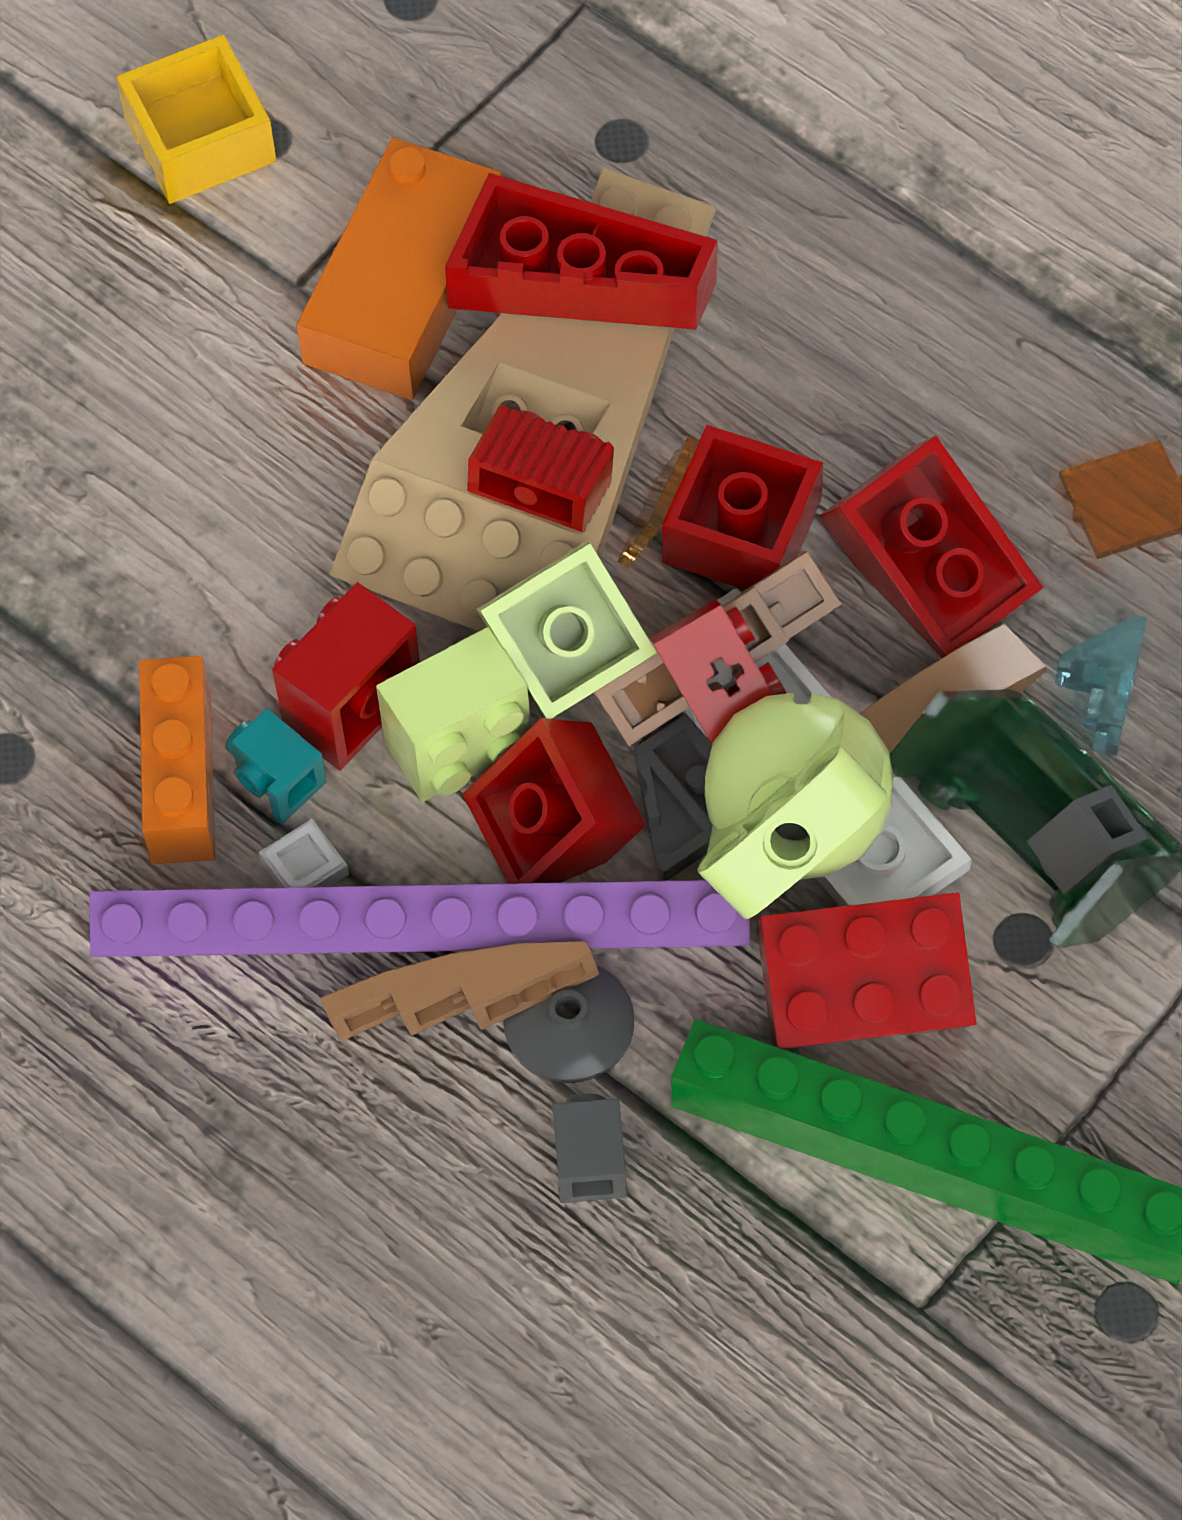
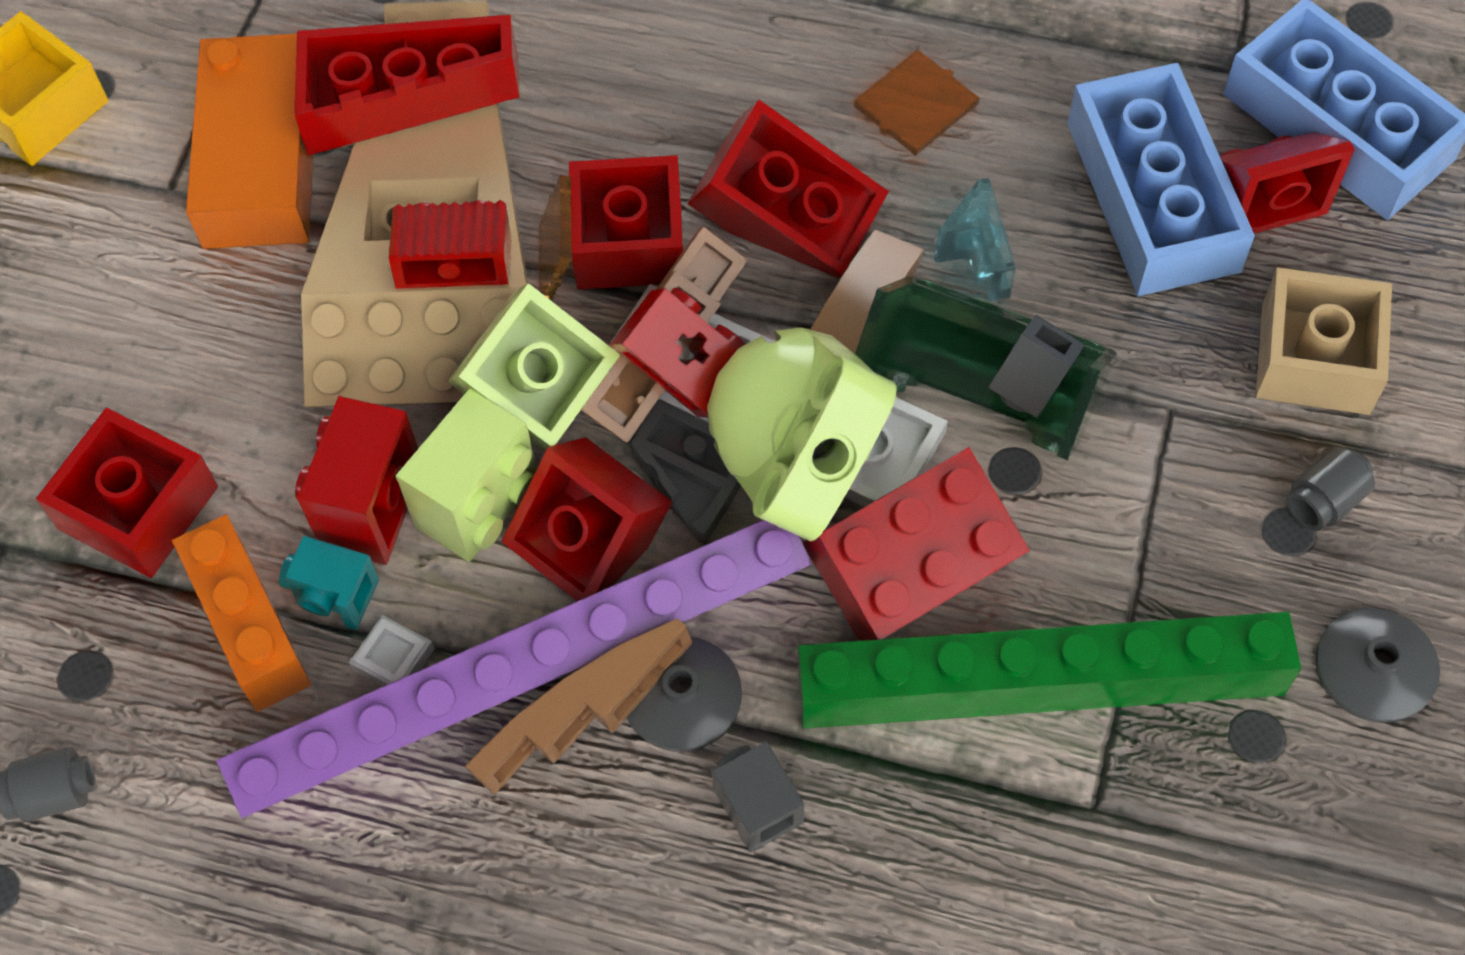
camera: 25 degrees left, 0 degrees up
(119, 593) = (127, 492): none -> red brick

